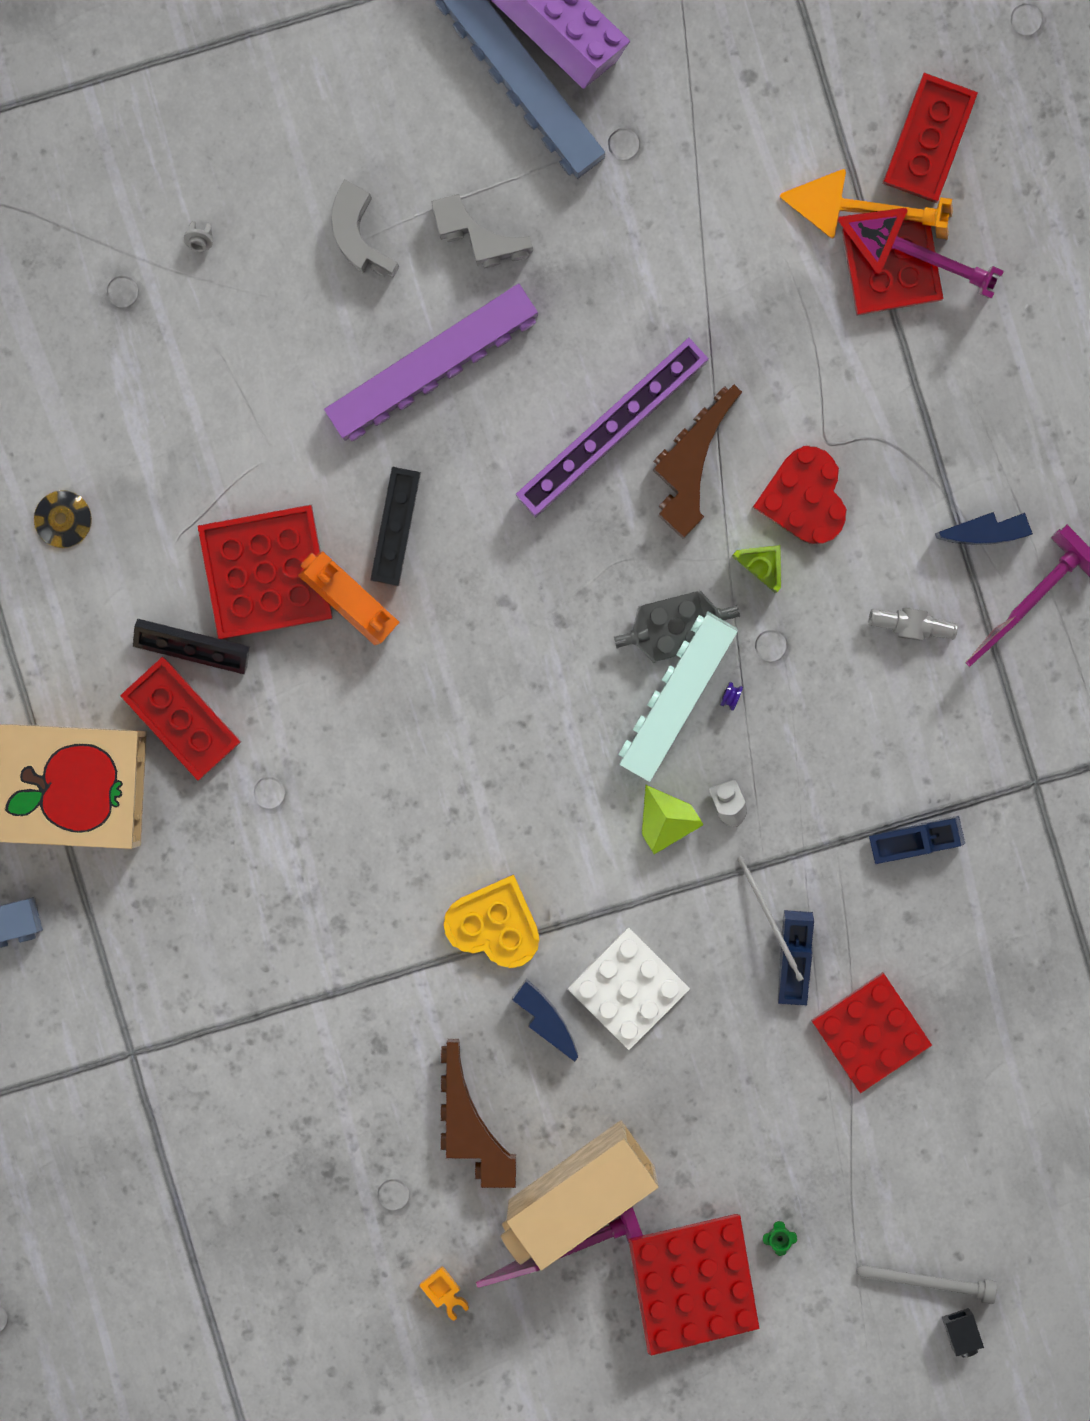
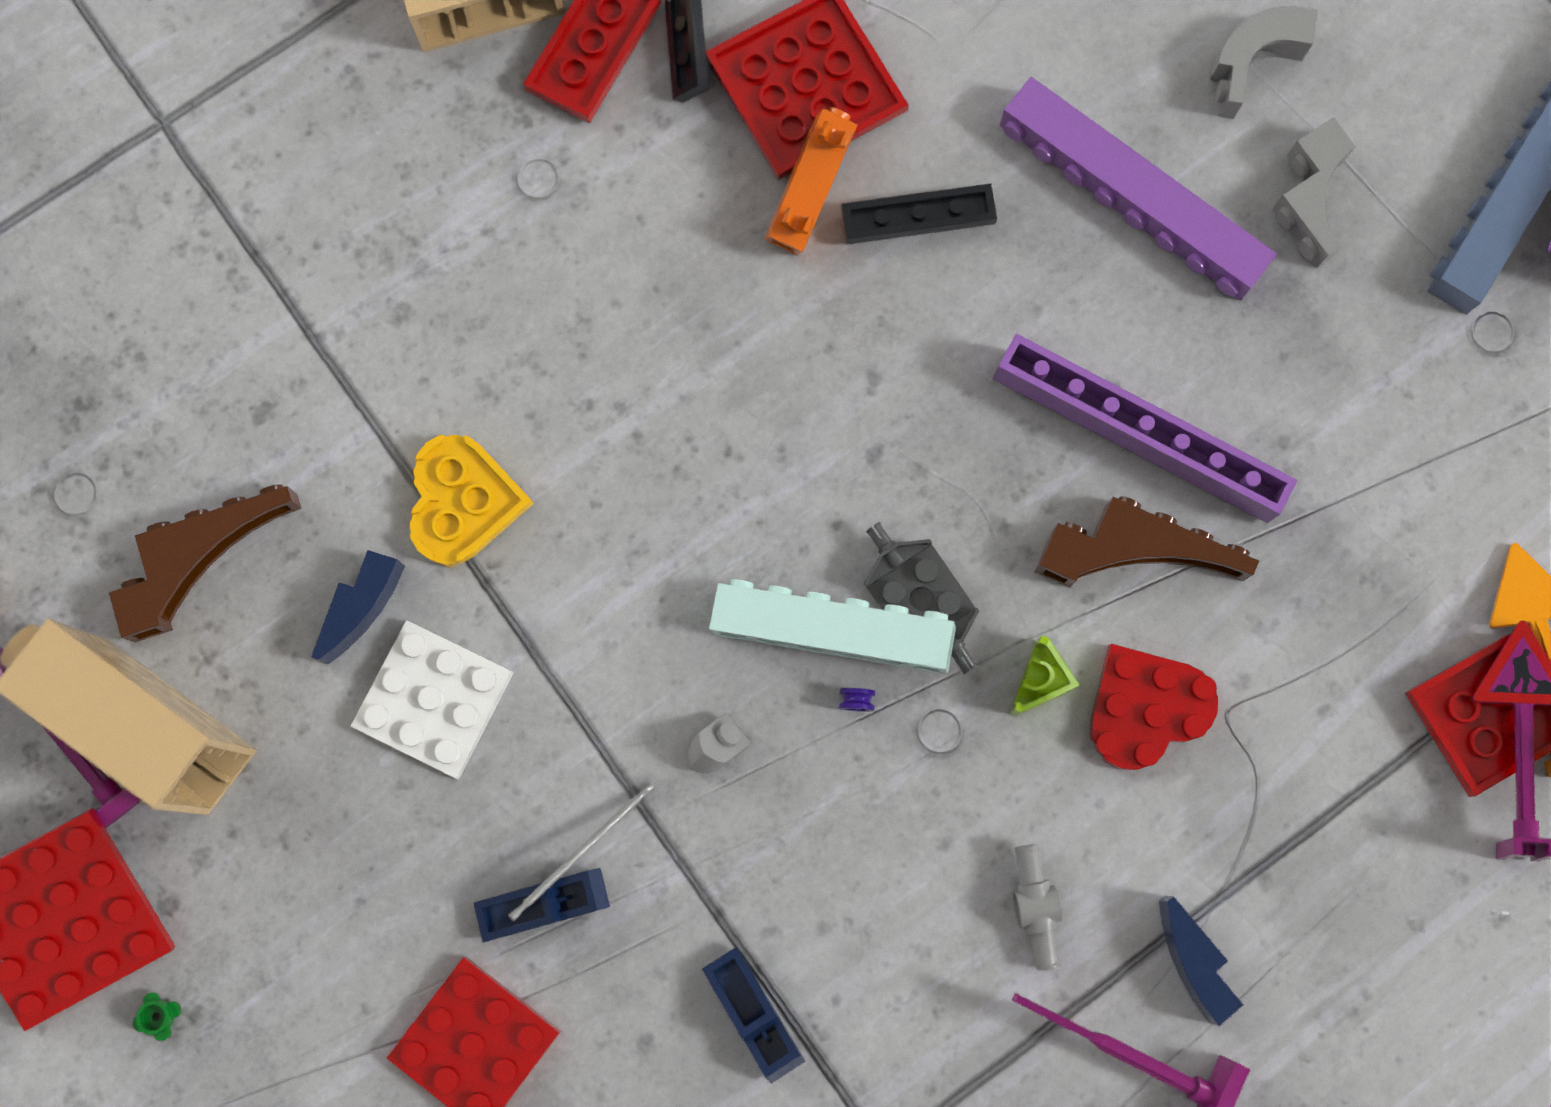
camera: 70 degrees right, 10 degrees down
(666, 819) = (668, 672): lime slope -> none

